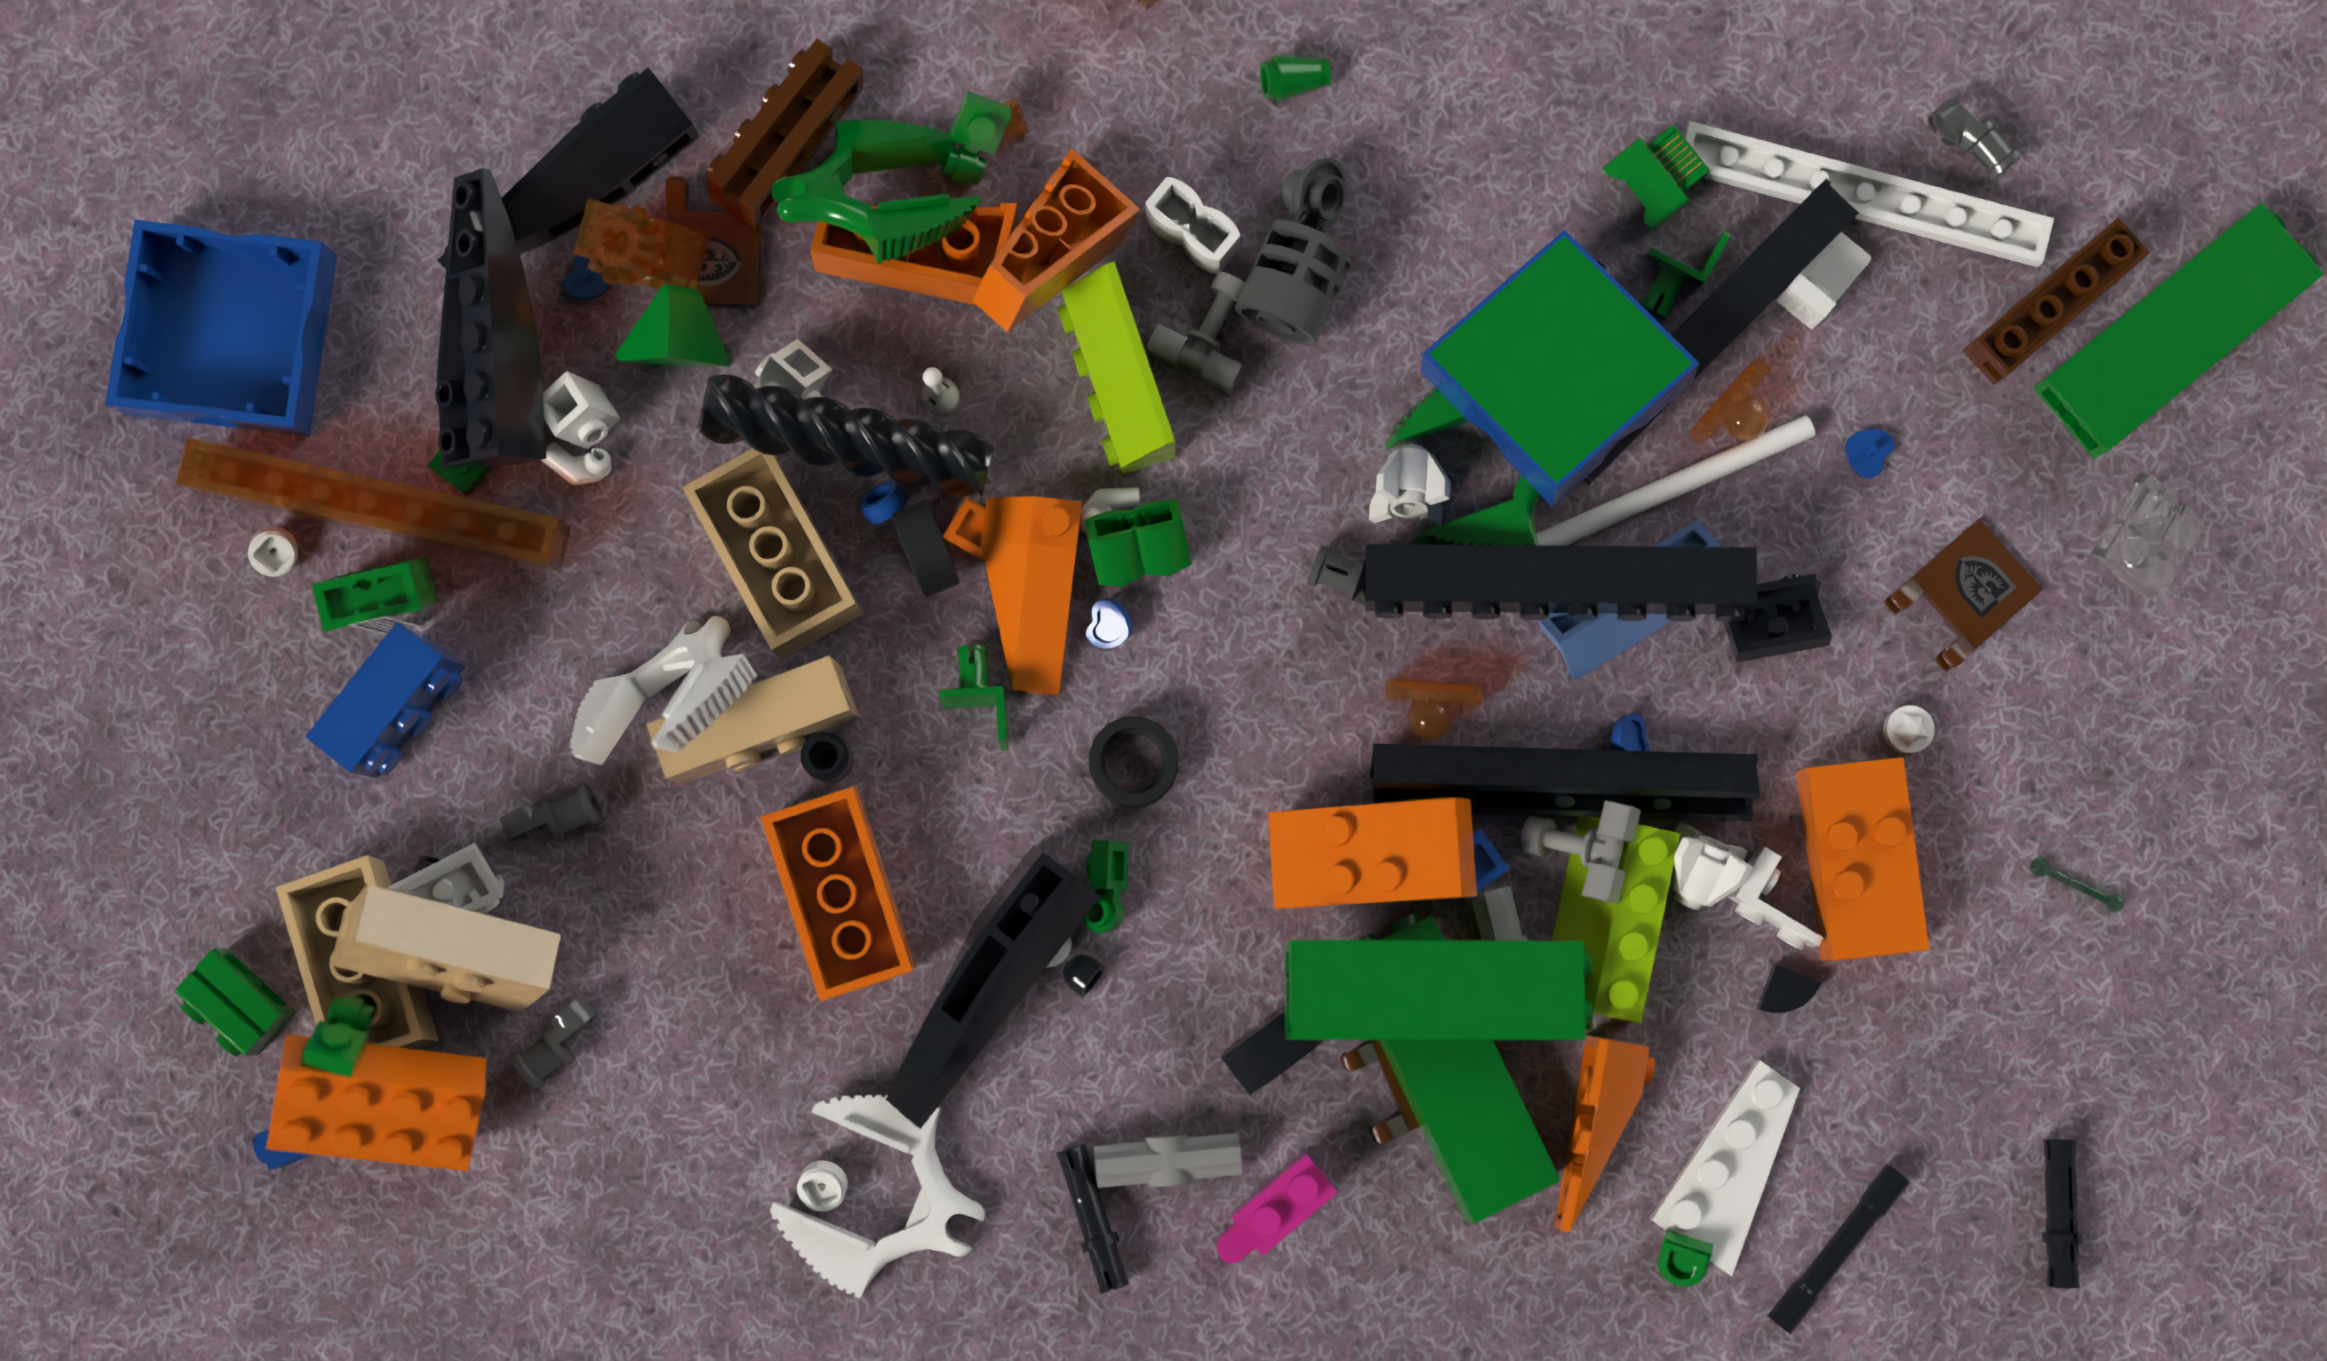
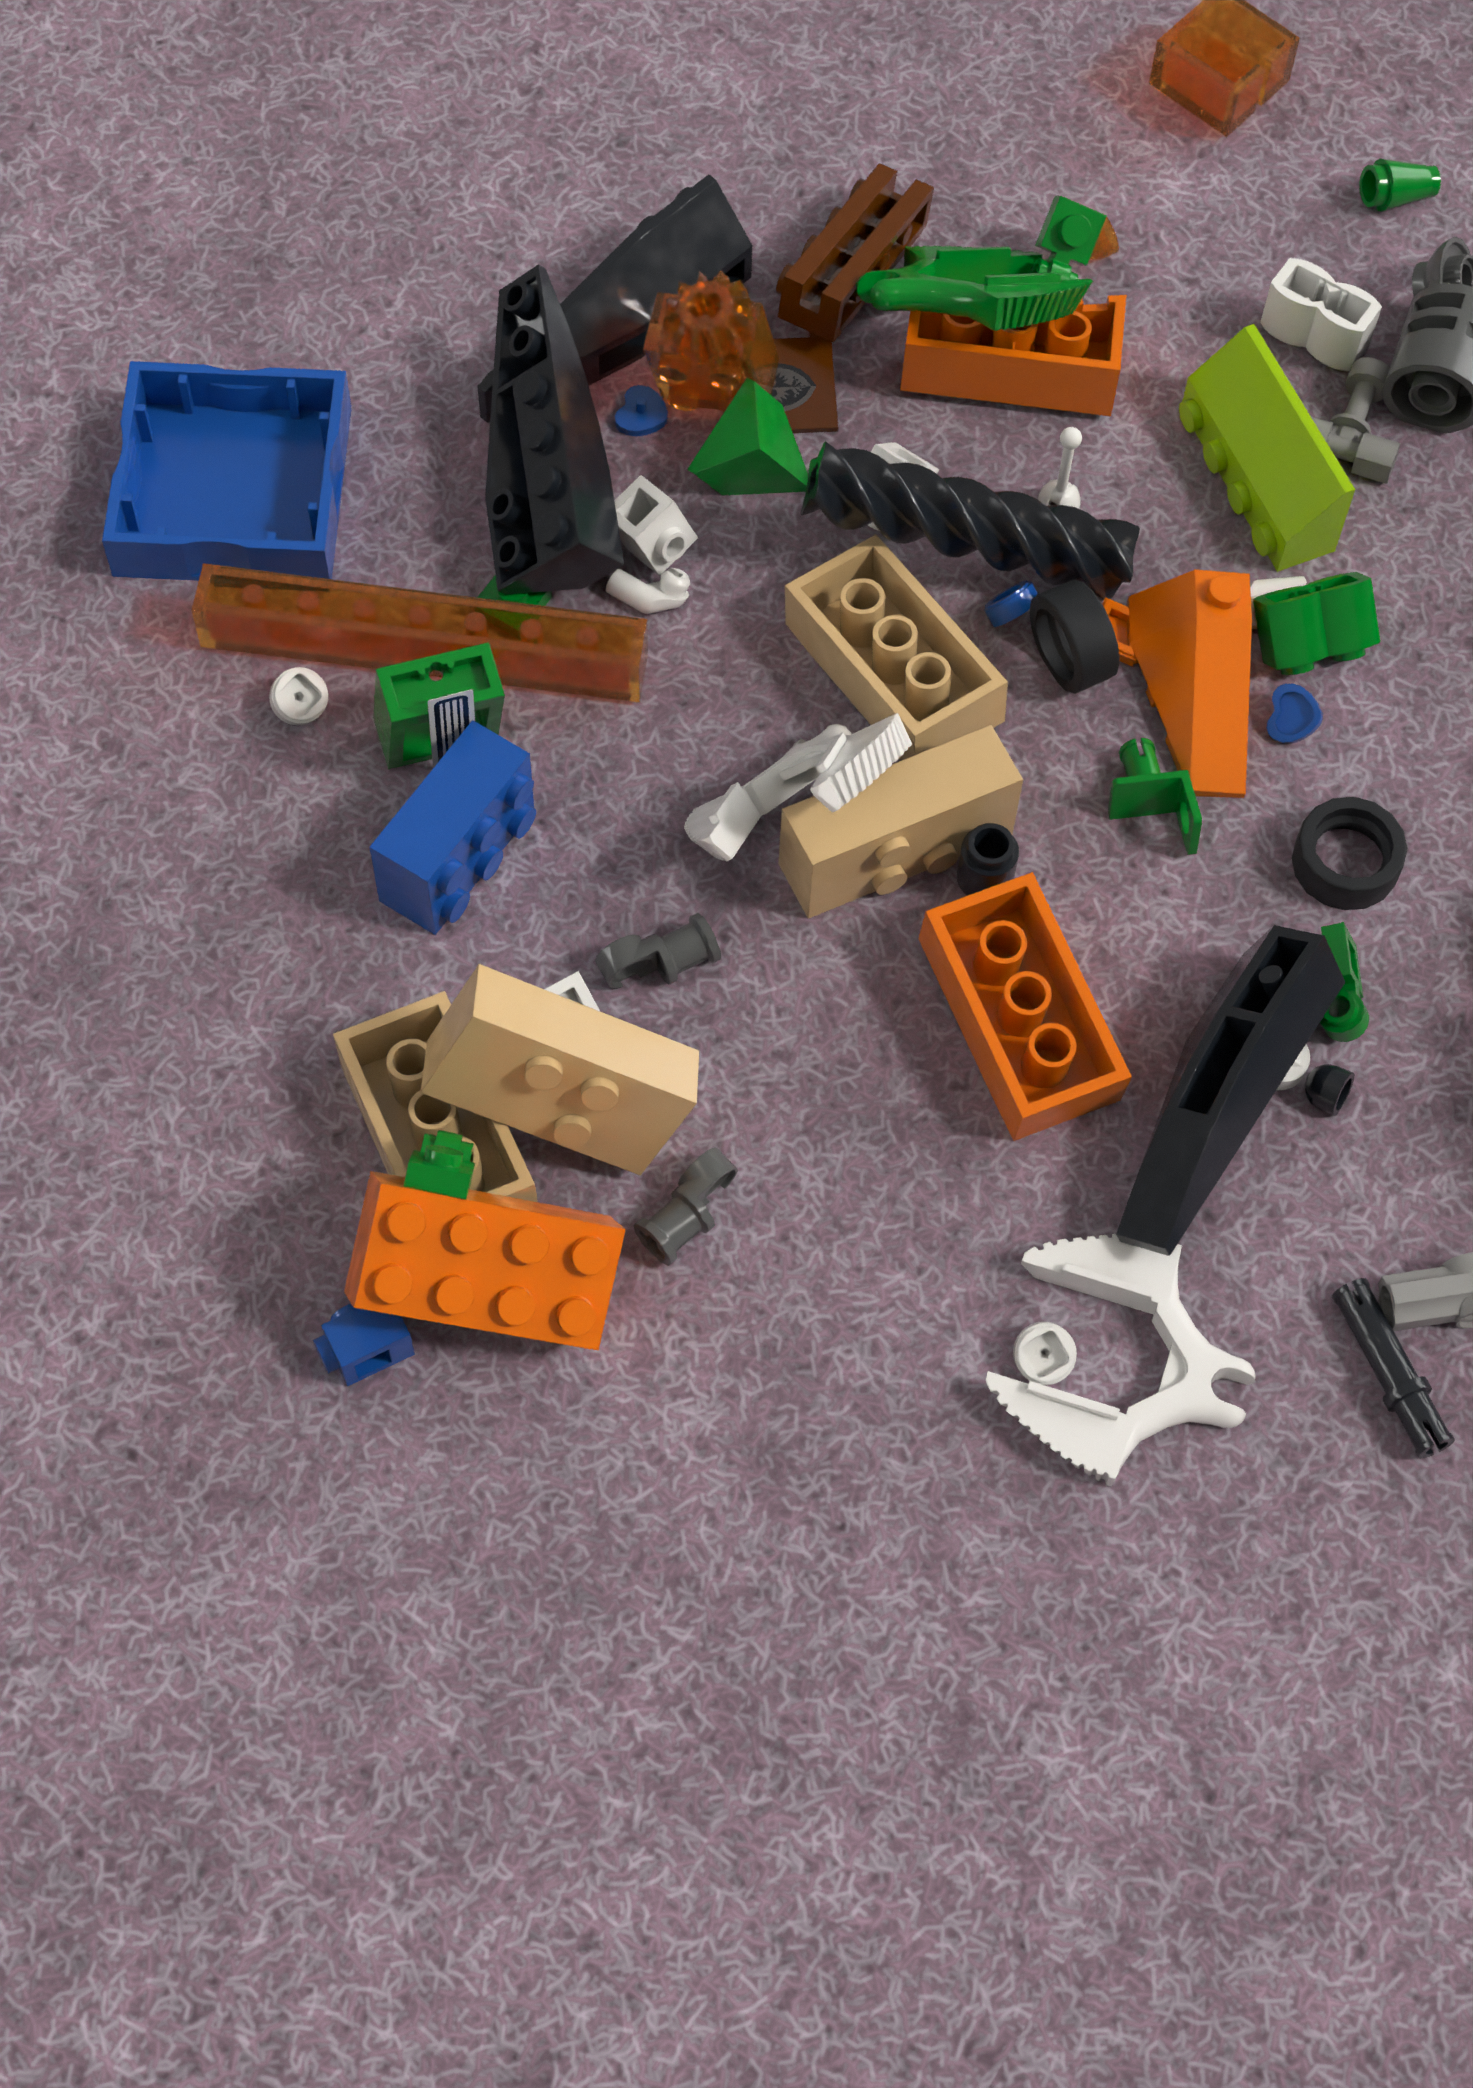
camera: 10 degrees left, 20 degrees down
(233, 1003) = (279, 1186): green brick -> none
(1055, 242) = (1179, 321): orange wedge -> none

